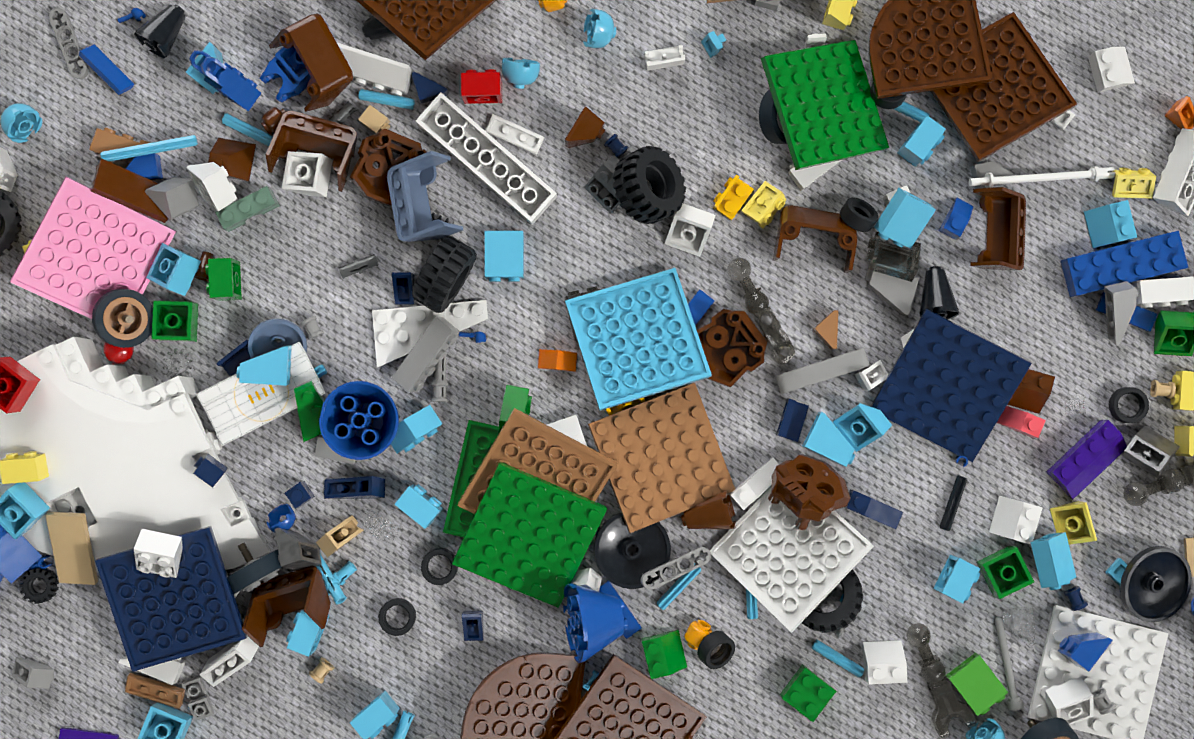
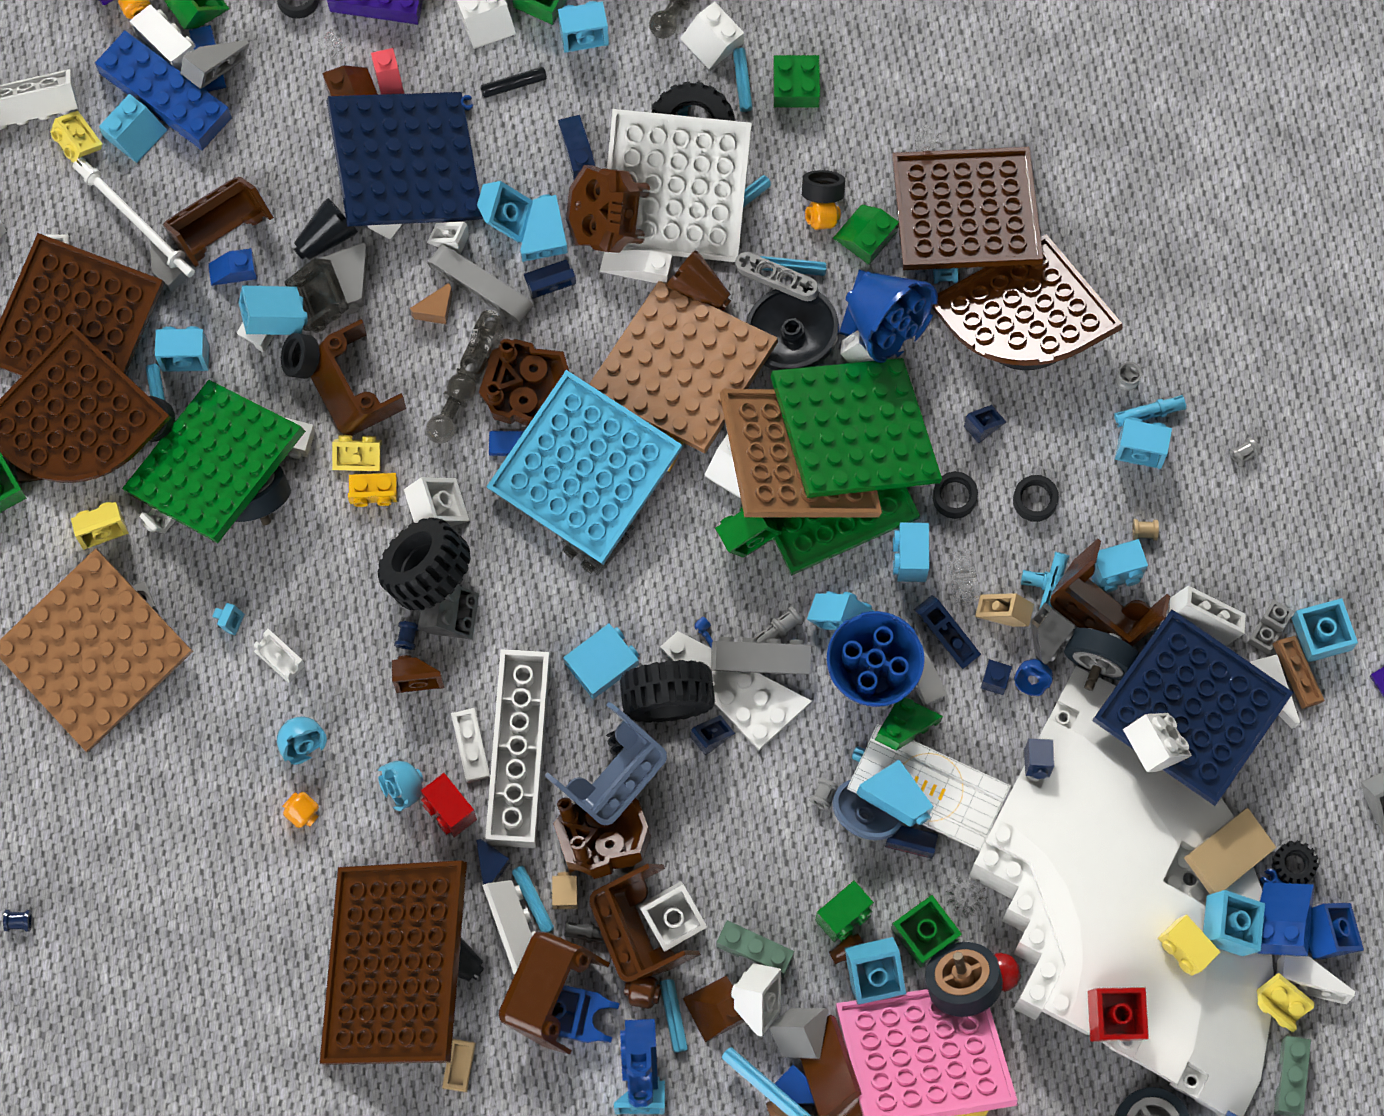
camera: 125 degrees left, 15 degrees down
(358, 266) = (725, 796): dark grey pin -> none
(557, 360) = (666, 535): orange slope -> none

